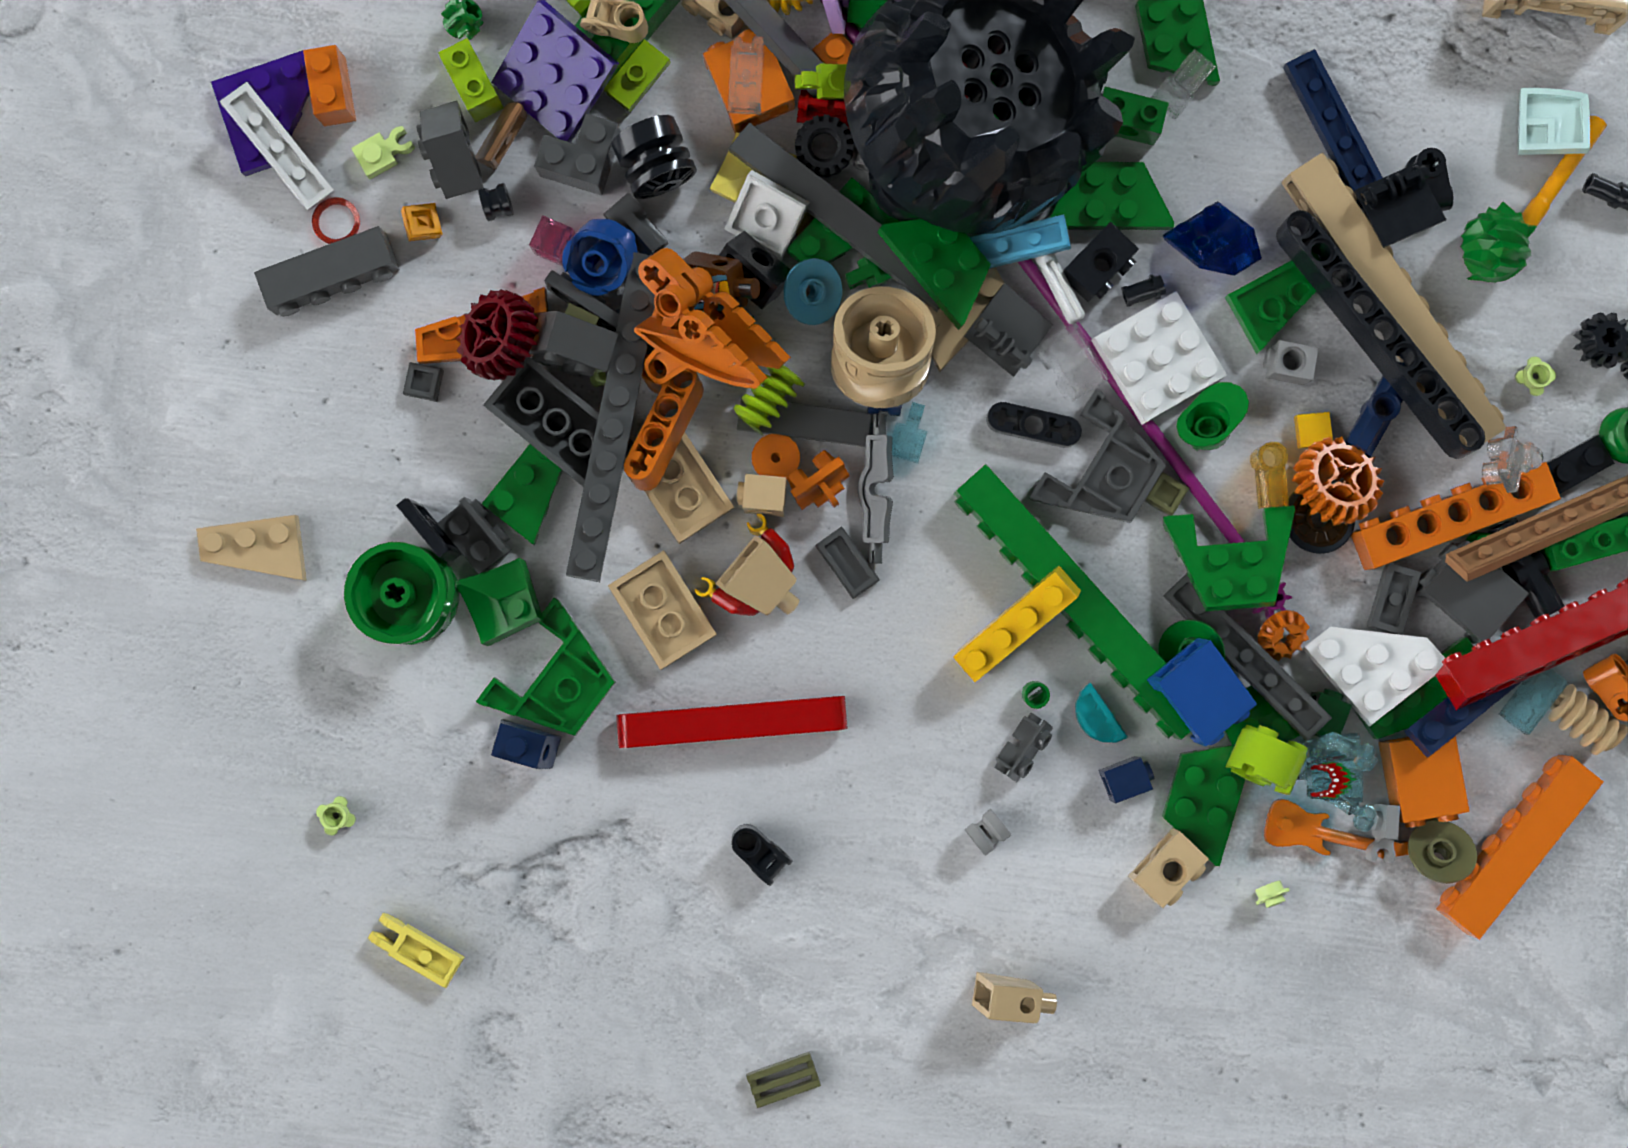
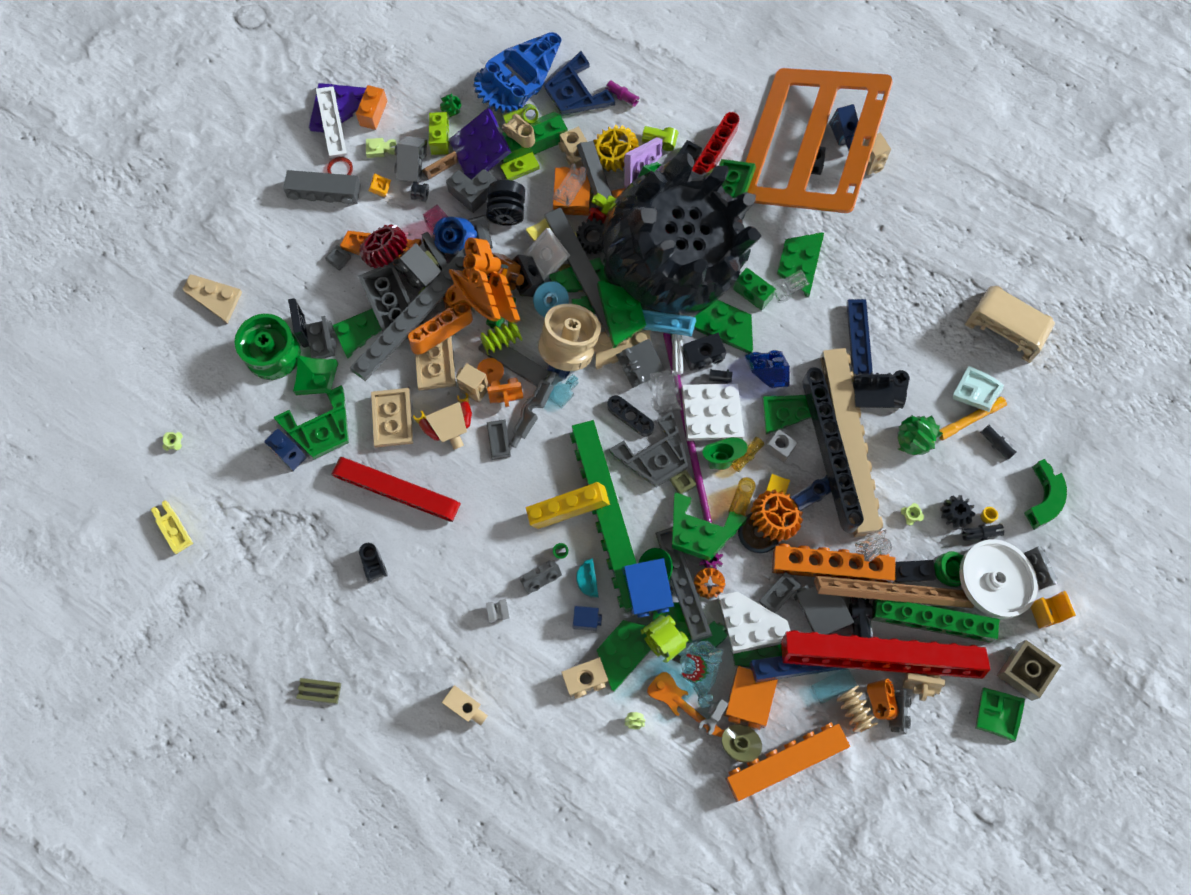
camera: 30 degrees right, 15 degrees down
(1250, 383) = (753, 448): none -> clear yellow pin

